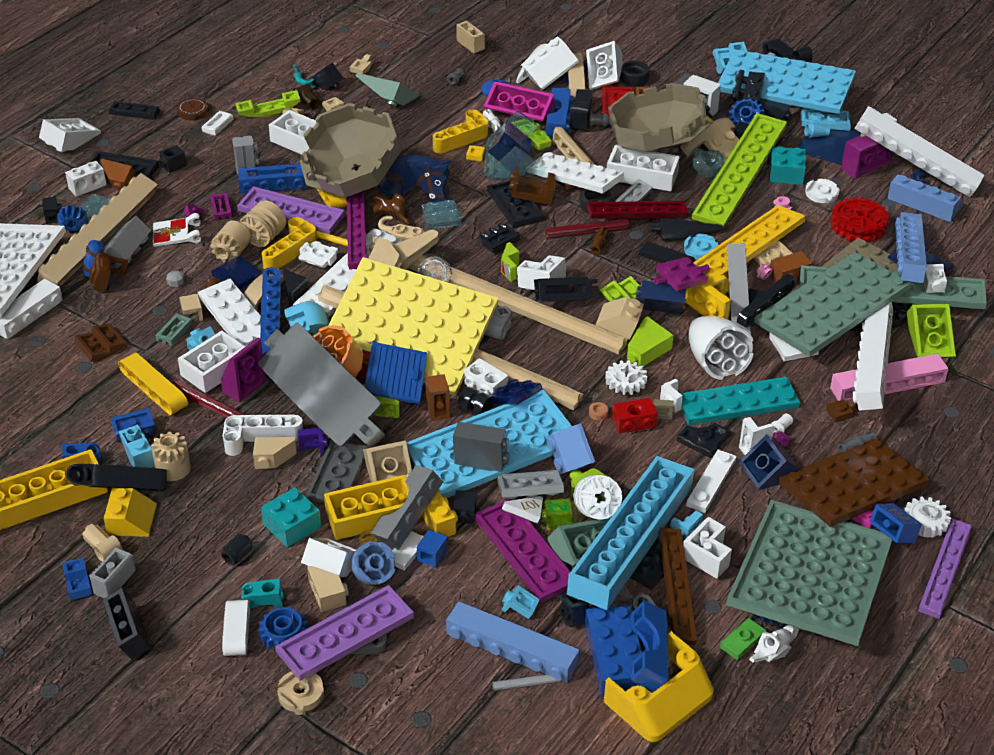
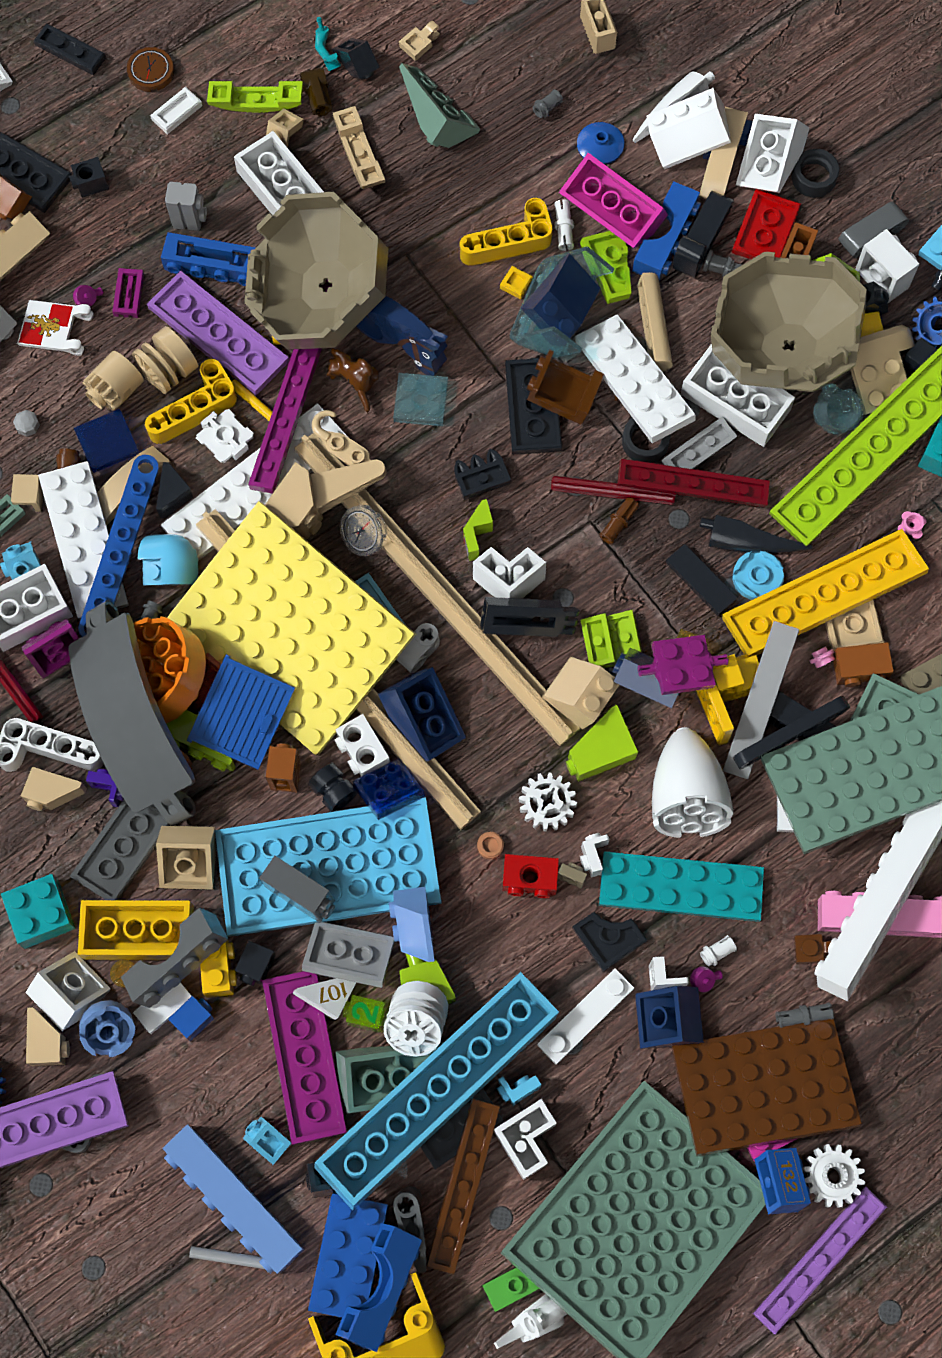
camera: 20 degrees right, 30 degrees up
(518, 348) = (423, 713): none -> dark blue slope

